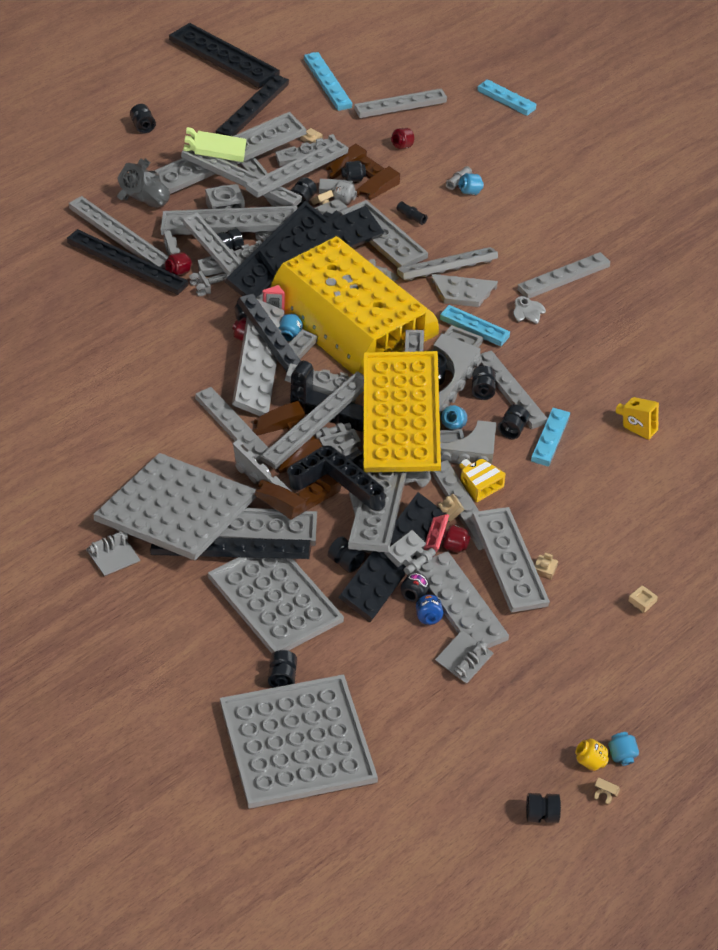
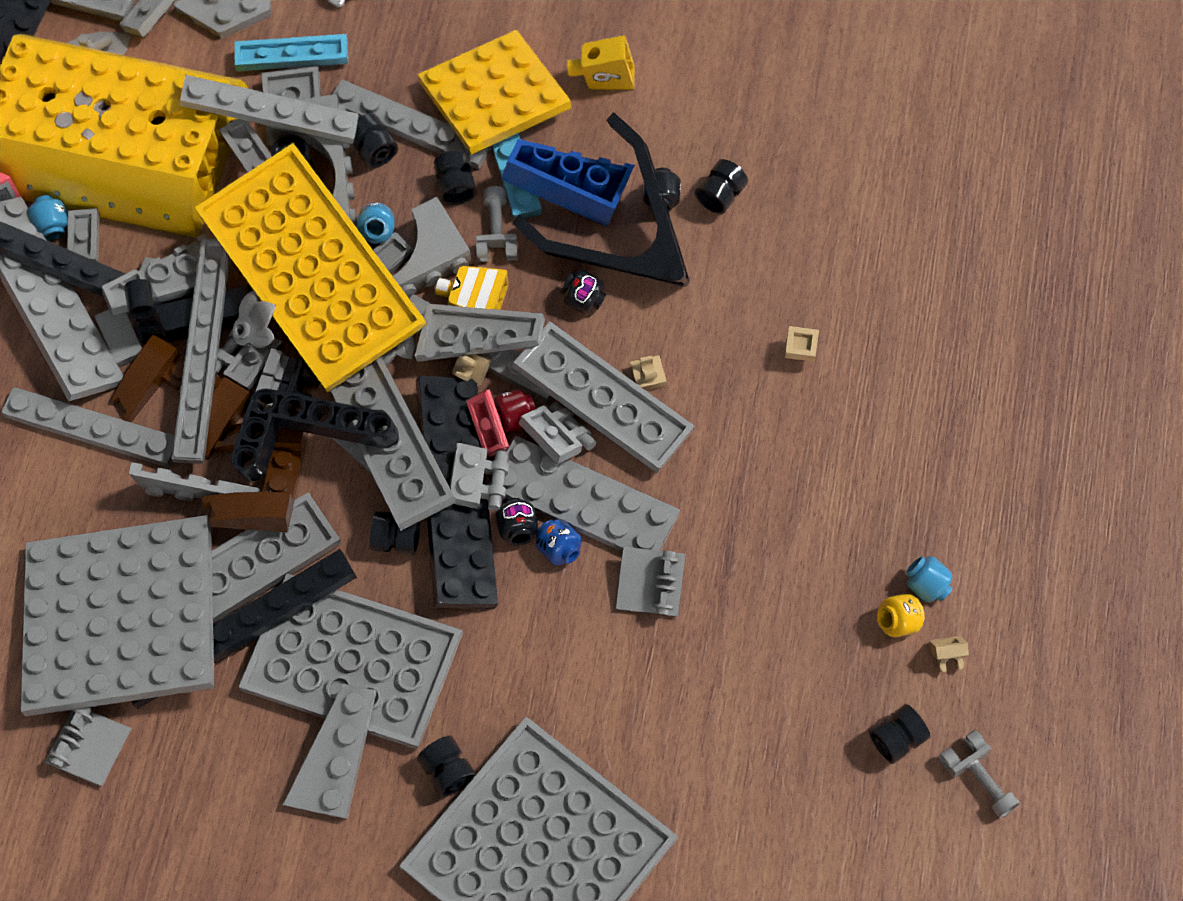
camera: 30 degrees left, 20 degrees up
(228, 632) = (334, 760): none -> light grey wing
(280, 395) = (119, 336): none -> light grey tile
(348, 423) = (253, 322): none -> light grey plate
(438, 332) = (268, 109): none -> light grey plate
(463, 487) = (470, 331): none -> light grey wing
(471, 561) = (557, 431): none -> light grey plate
(528, 443) = (495, 198): none -> light grey bar
(540, 508) = (583, 291): none -> black head
(568, 396) = (494, 91): none -> yellow plate
(574, 453) = (568, 179): none -> blue wedge
(576, 880) = (1003, 802): none -> light grey bar
(595, 515) = (663, 258): none -> black piece
(623, 488) = (670, 186): none -> black head
(657, 505) = (721, 186): none -> black wheel

